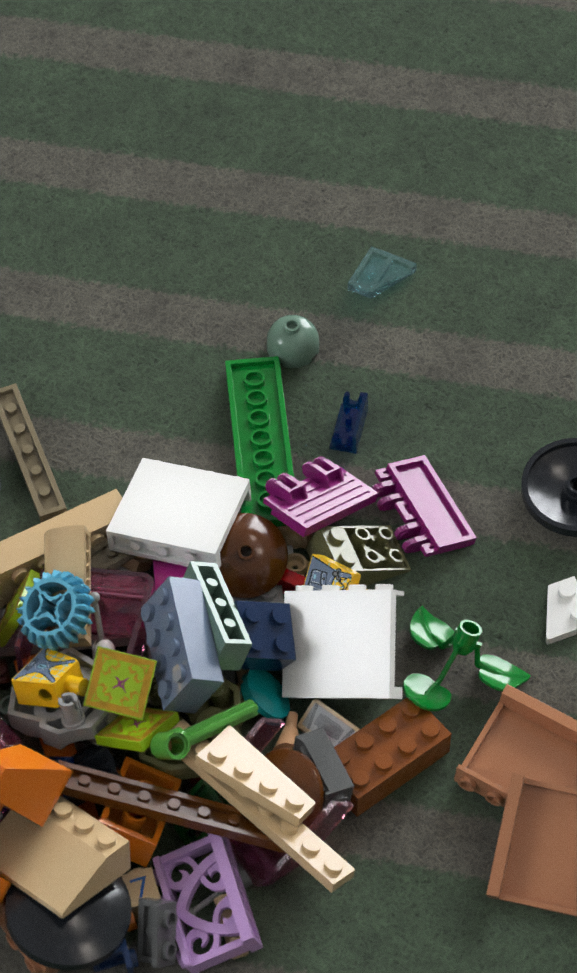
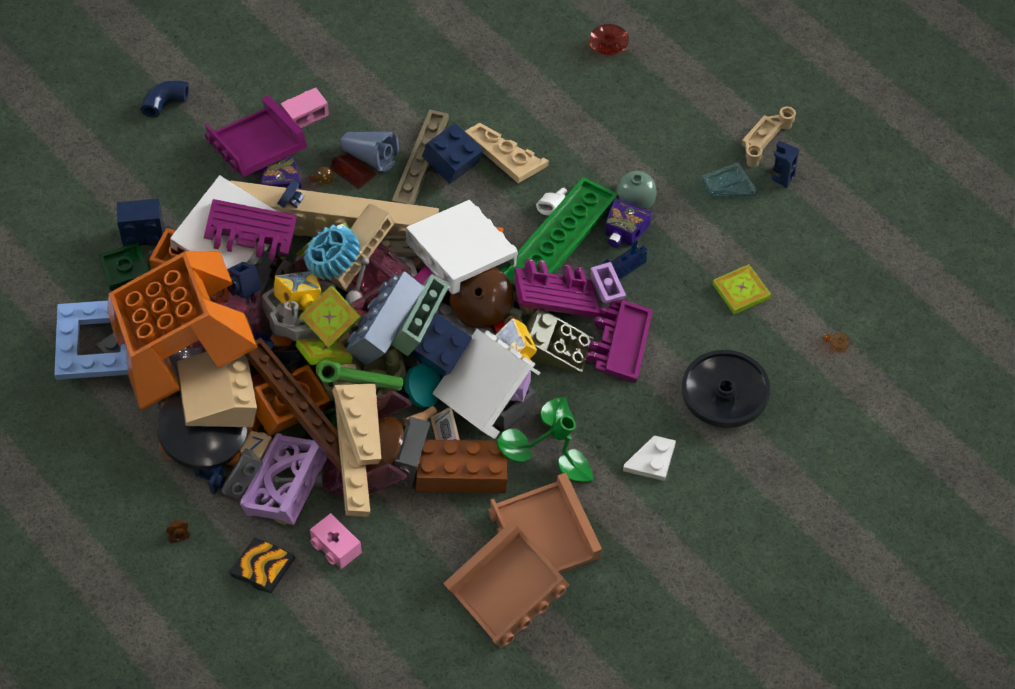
camera: 35 degrees right, 0 degrees up
(63, 422) = (452, 153): none -> dark blue brick
(116, 191) = (609, 39): none -> clear red dish
(129, 390) = (505, 153): none -> tan wing
(216, 408) = (550, 201): none -> white piece
(310, 924) = (335, 541): none -> bright pink brick
(313, 381) = (626, 223): none -> torso
(360, 457) = (606, 283): none -> lavender slope
(367, 202) = (764, 132): none -> tan plate
(423, 217) = (785, 163): none -> dark blue hinge
(492, 376) = (741, 289): none -> tile

